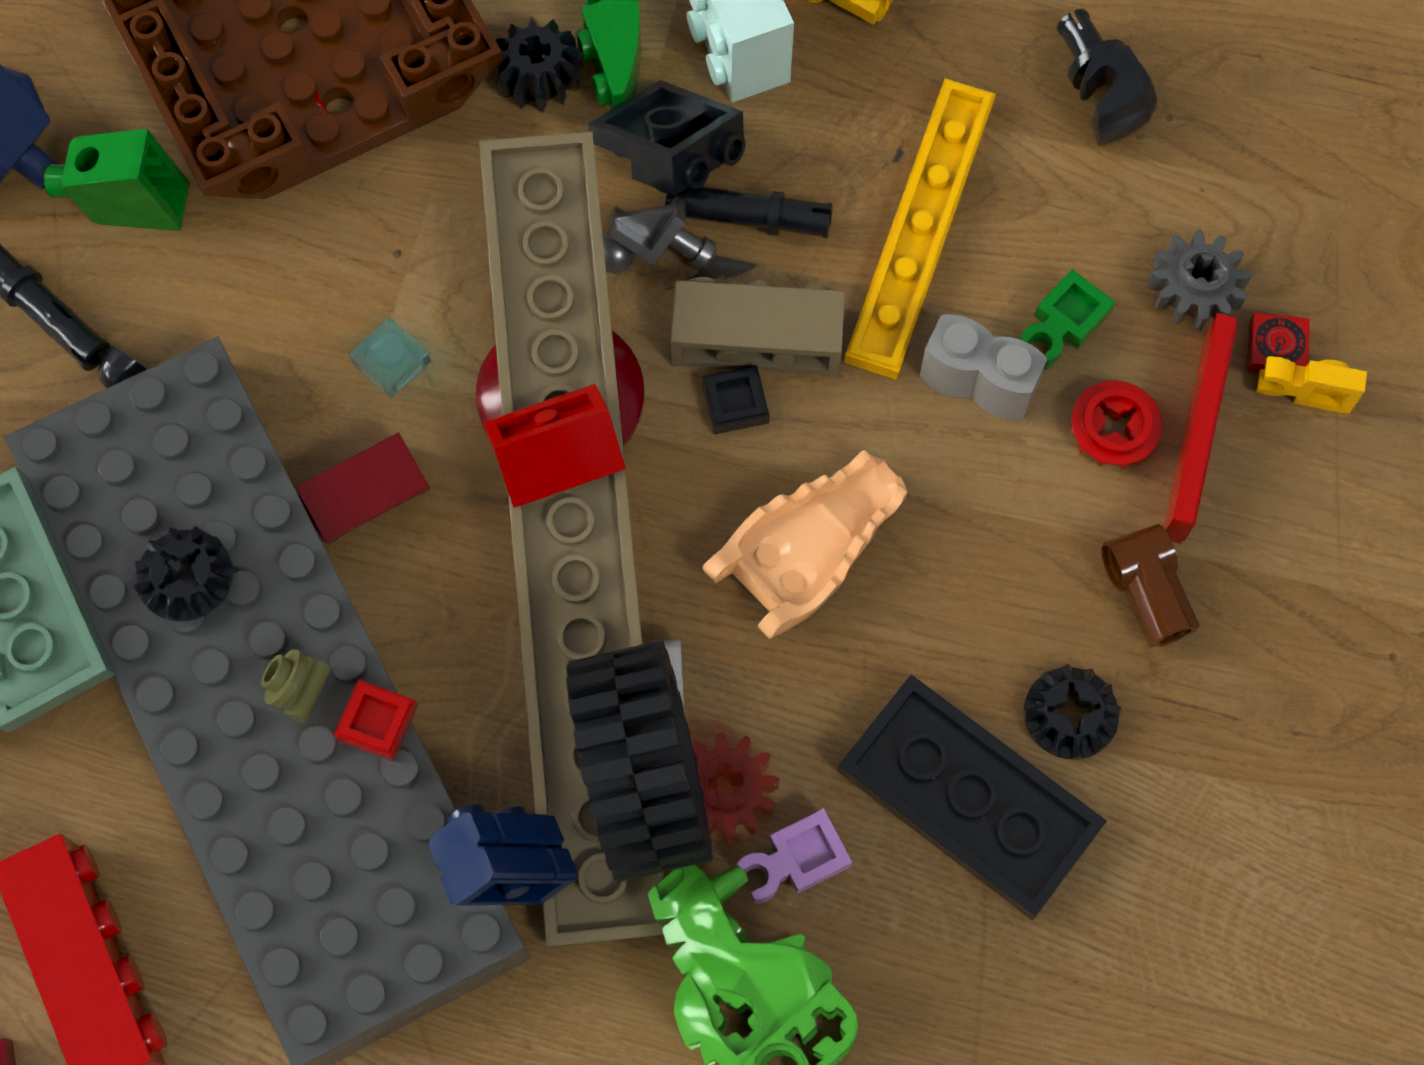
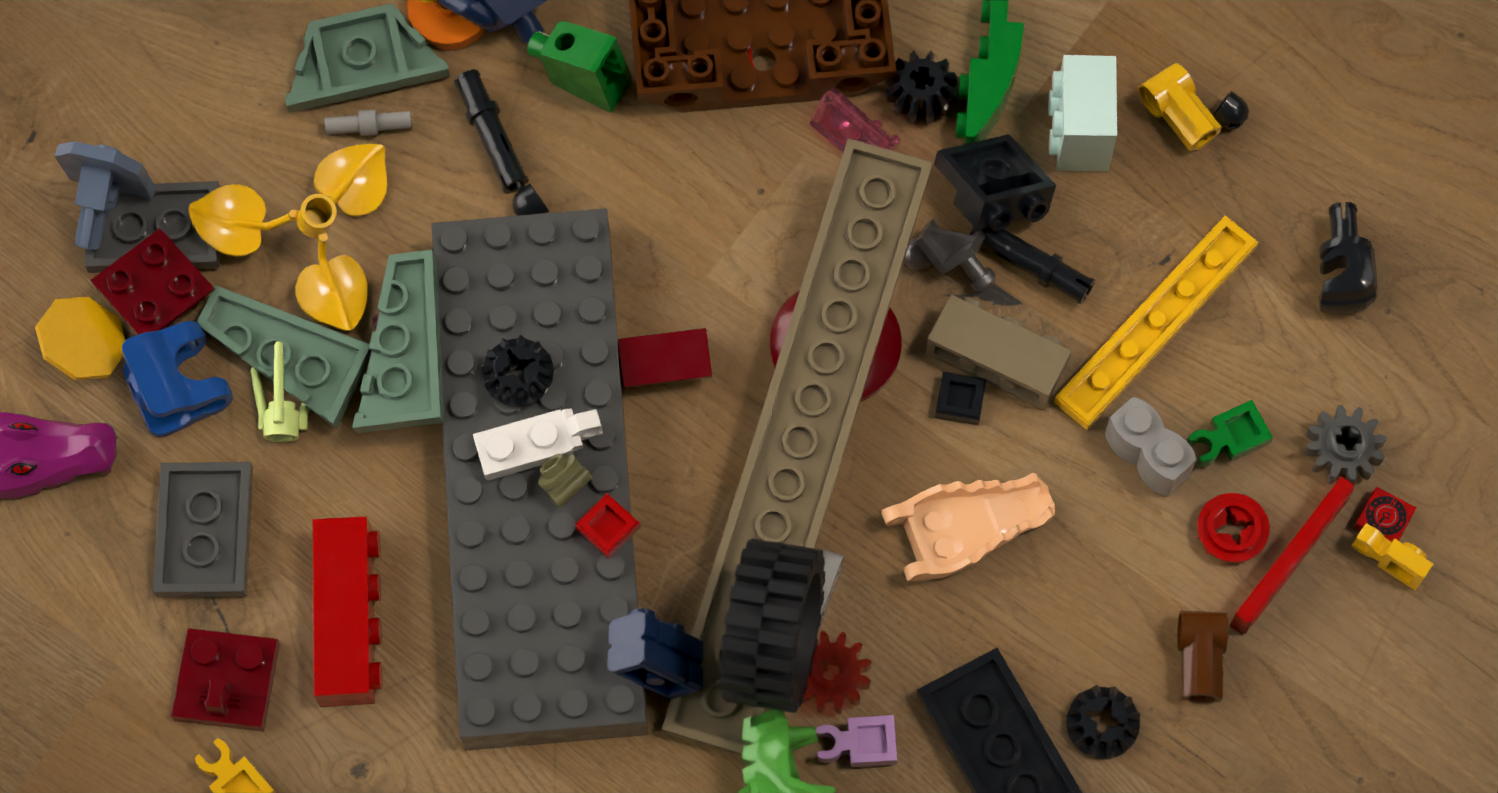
camera: 25 degrees right, 0 degrees up
(239, 652) = (534, 441): none -> white hinge
(390, 357) = (723, 268): clear light blue plate -> none
(455, 134) = (841, 119): none -> clear pink plate
(555, 445) = (809, 382): red panel -> none

